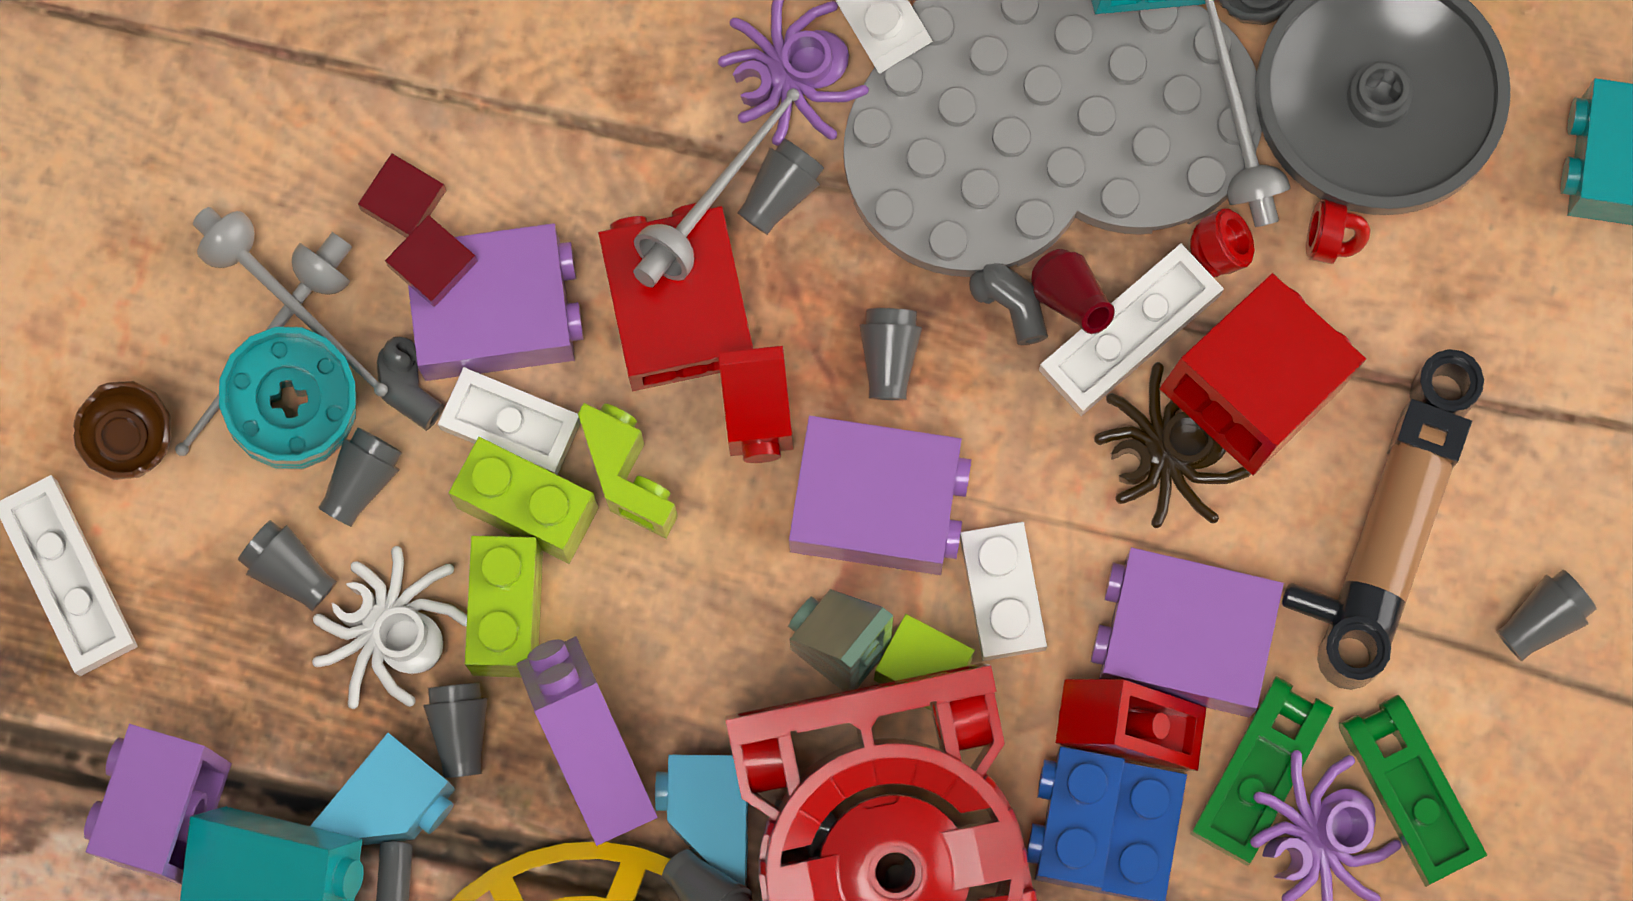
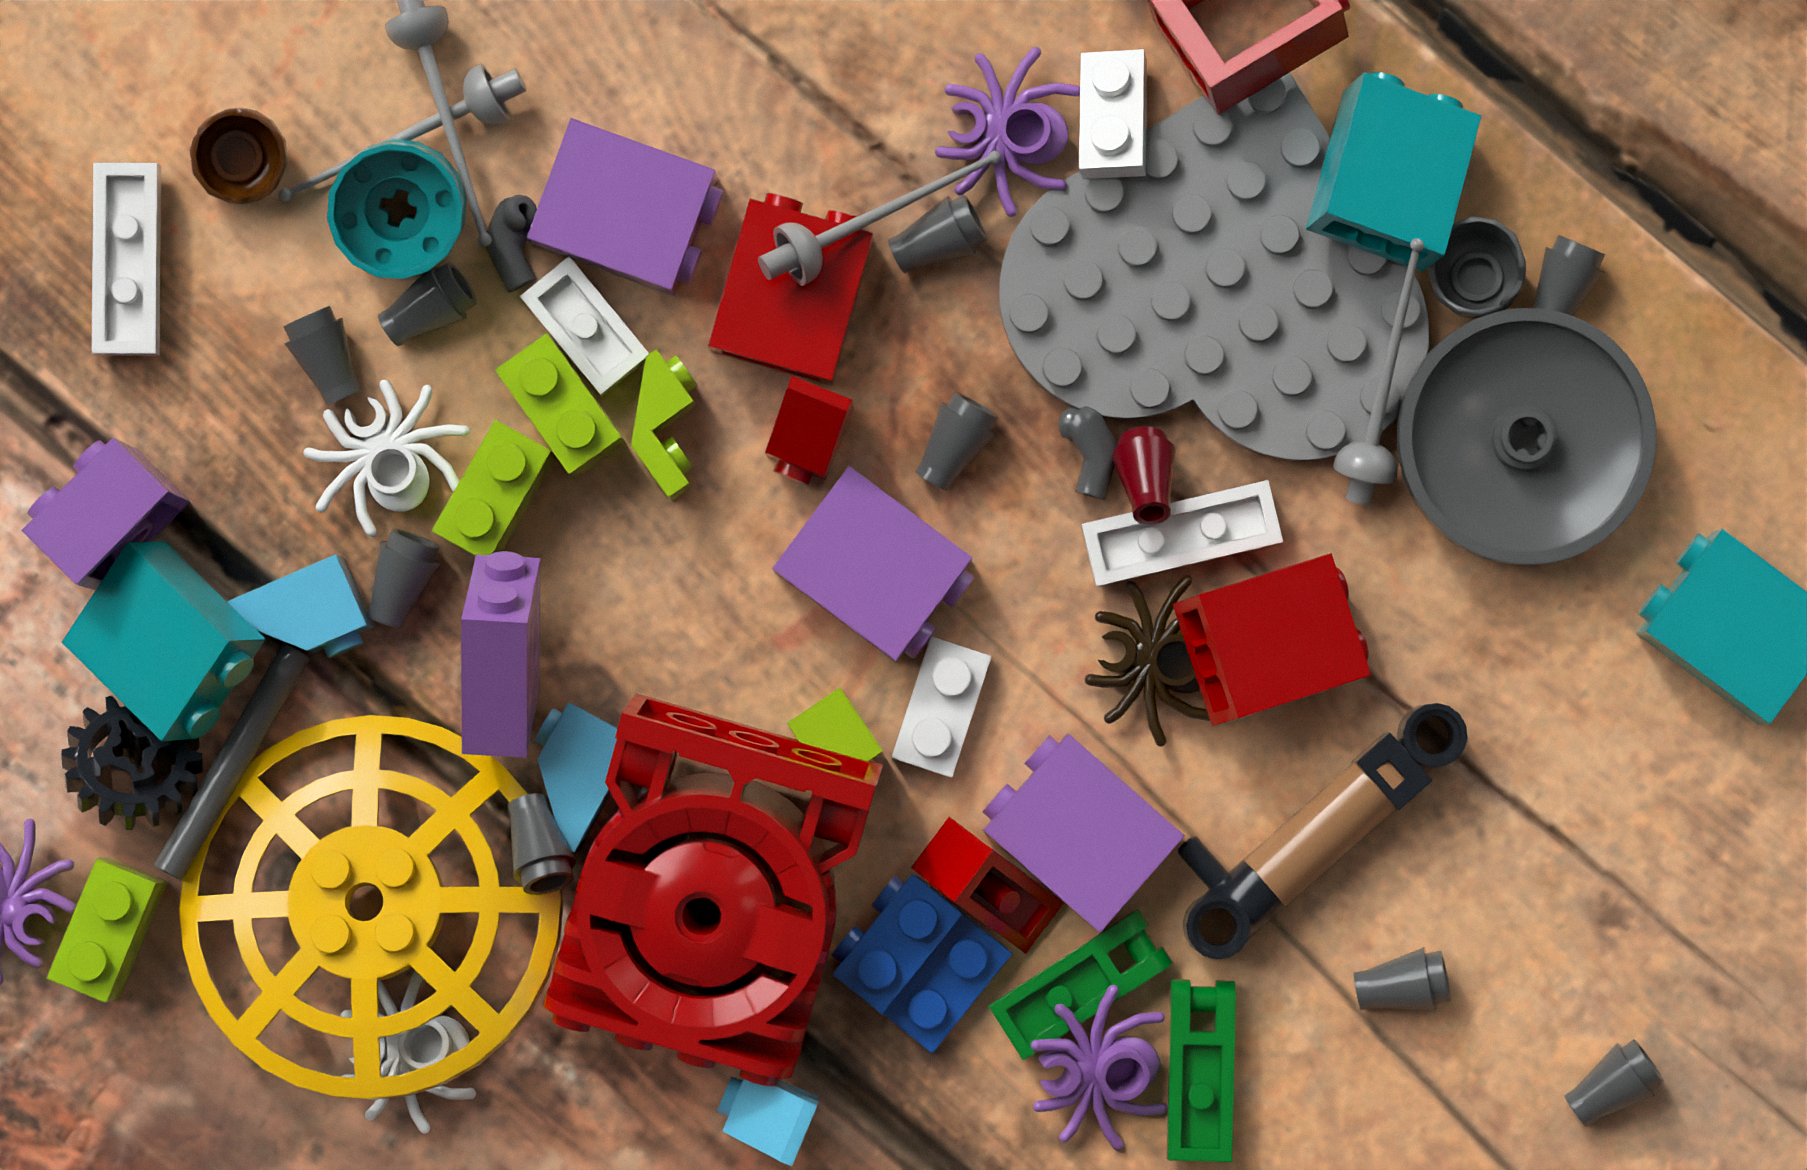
camera: 30 degrees right, 10 degrees up
(401, 196) = (596, 64): dark red tile -> none
(431, 260) = (586, 149): dark red tile -> none
(841, 637) = (769, 677): sand green slope -> none
(1222, 243) = (1307, 498): red tile -> none
(1328, 229) = (1406, 537): red tile -> none

